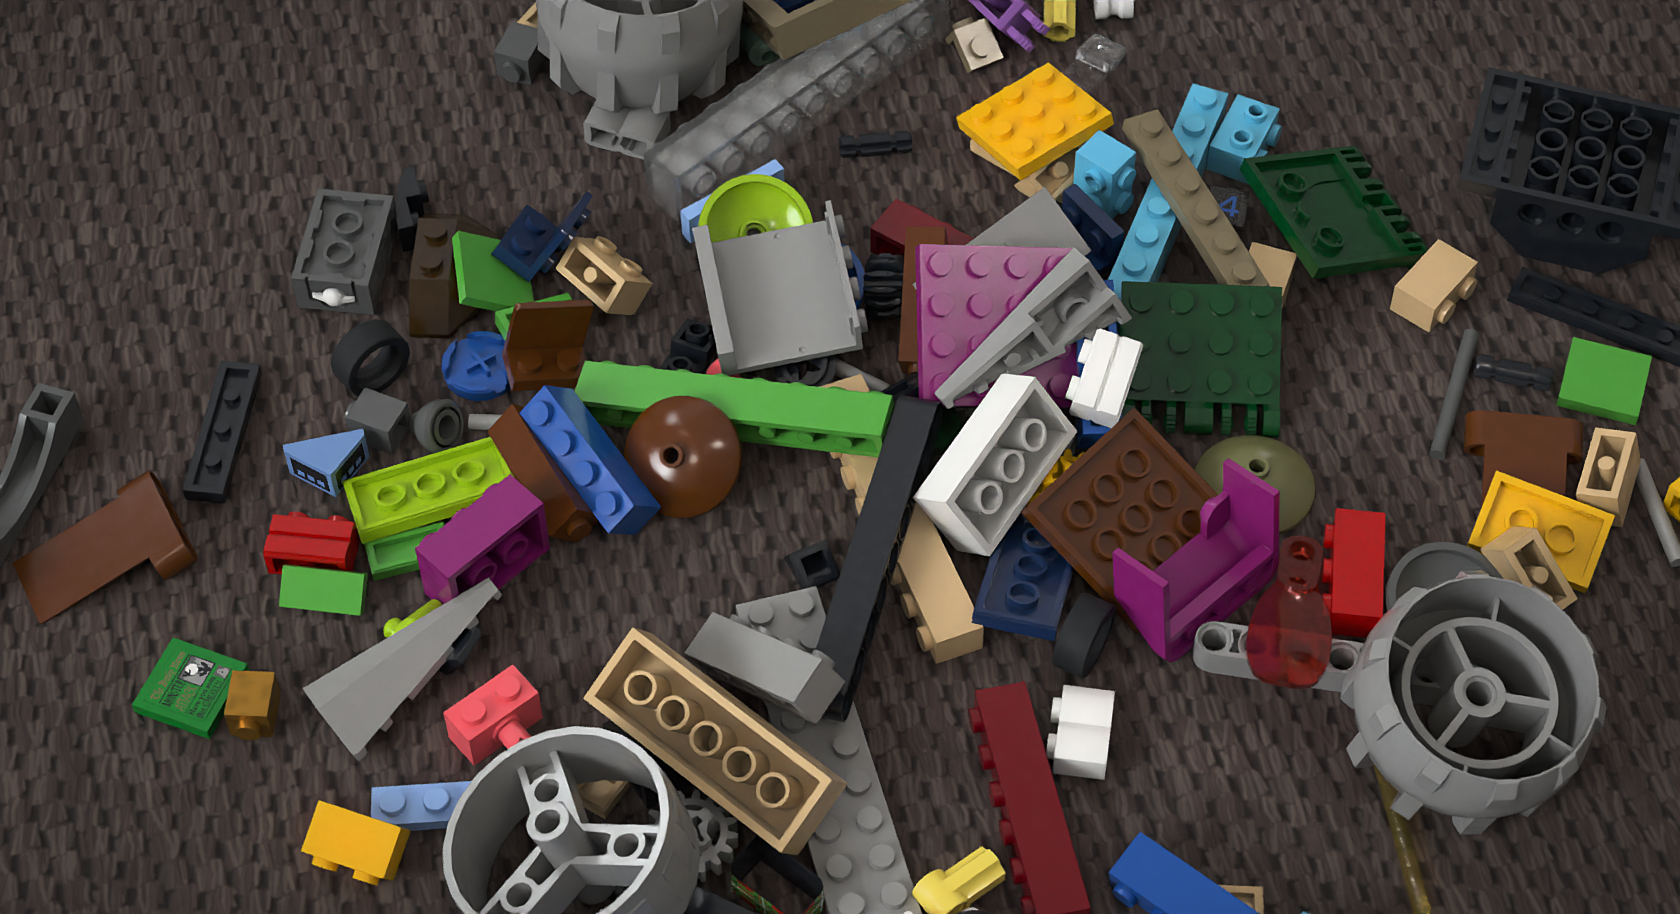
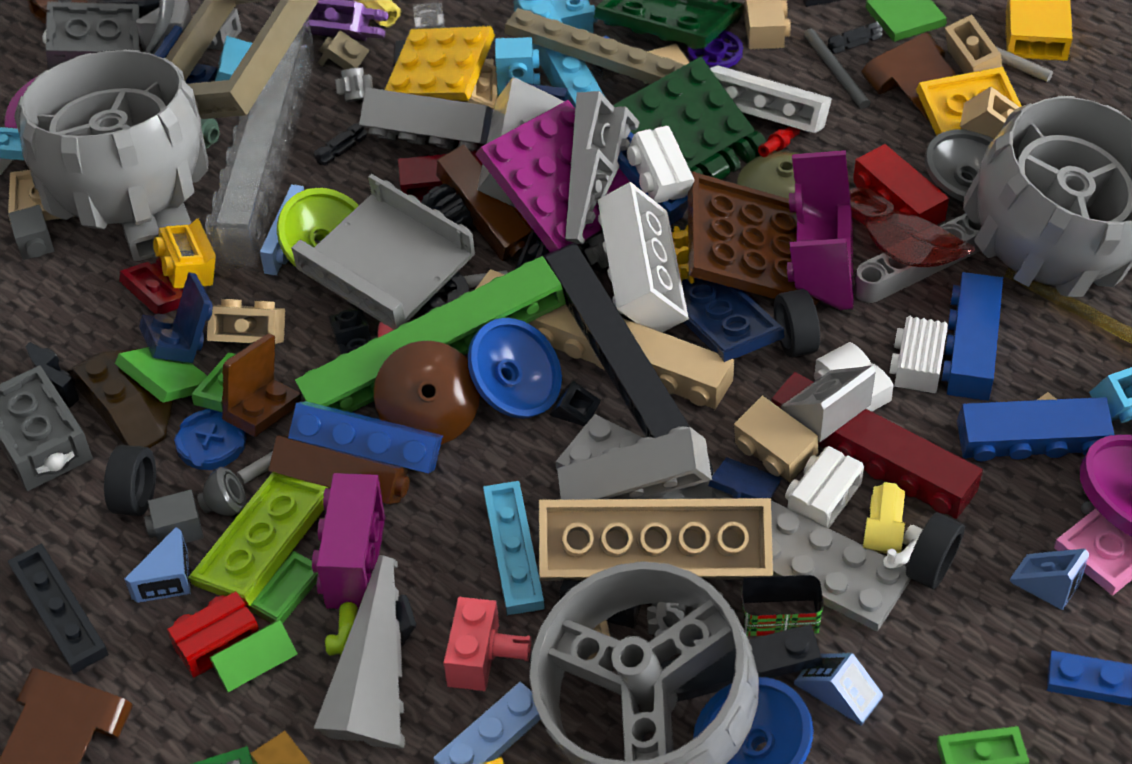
camera: 40 degrees left, 5 degrees down
(570, 176) = (151, 286): none -> dark red plate
(618, 170) = (185, 251): none -> yellow window
(649, 611) = (513, 548): none -> medium azure plate
(807, 484) = (524, 359): none -> blue dish
(872, 752) = (744, 480): none -> dark blue piece
(938, 813) = (825, 487): none -> white brick
(940, 733) = (775, 439): none -> tan brick
(945, 87) = (353, 84): none -> light grey gear
(955, 168) = (425, 118): none -> light grey brick
(1015, 735) = (832, 400): none -> light grey slope
(1176, 755) = (920, 354): none -> white brick
(1251, 776) = (974, 336): none -> blue brick
(1295, 432) = (778, 140): none -> red bar
(1329, 381) = (774, 100): none -> white brick
(1351, 289) = (718, 50): none -> dark purple wheel

